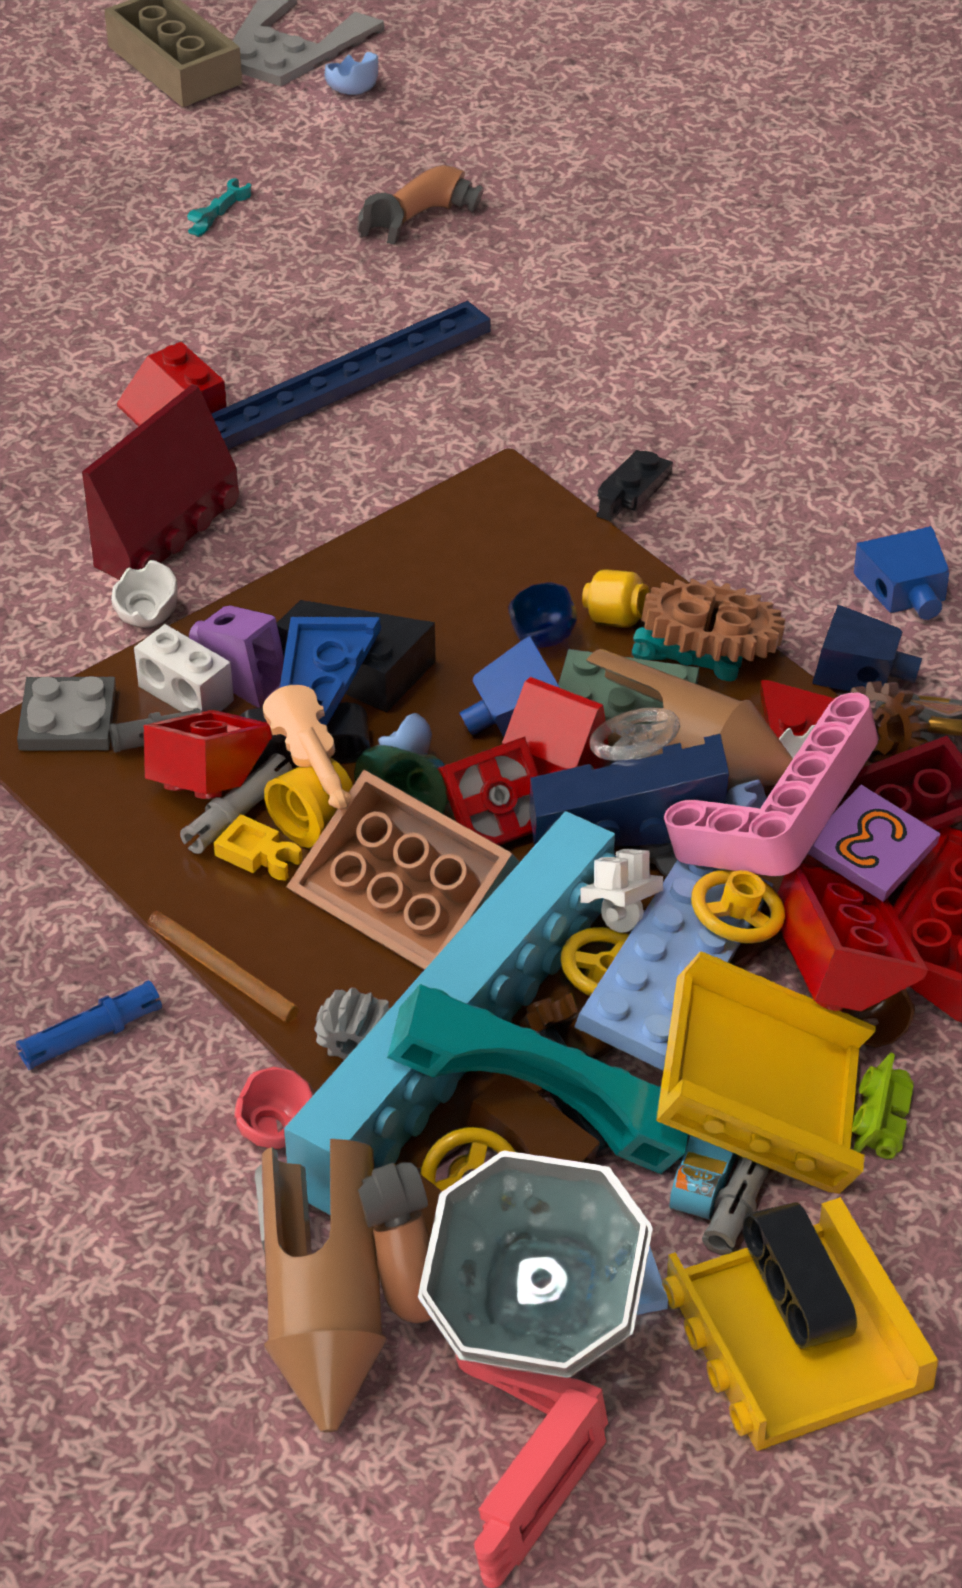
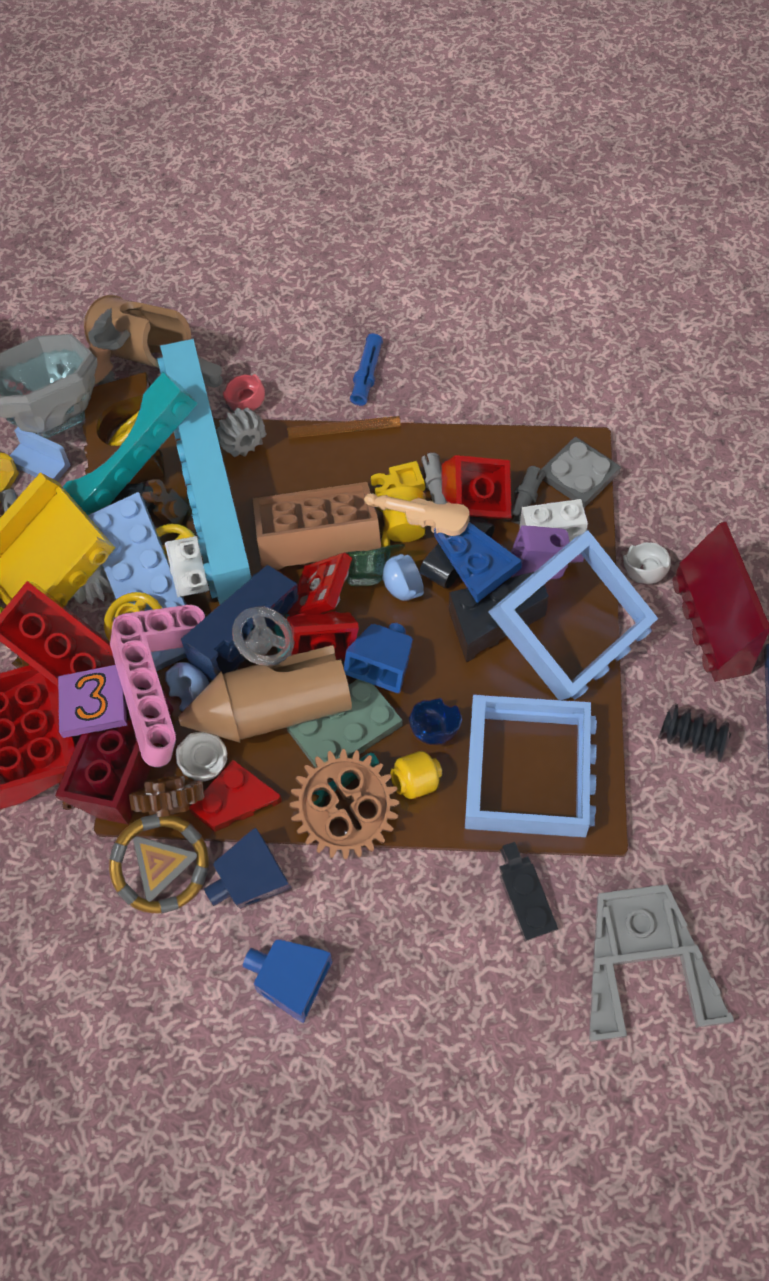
camera: 135 degrees right, 15 degrees up
(303, 568) = (534, 651): none -> light blue window
(326, 462) = (696, 731): none -> black piece
(583, 409) = (640, 928): none -> light grey wing
(592, 545) = (532, 711): none -> light blue window

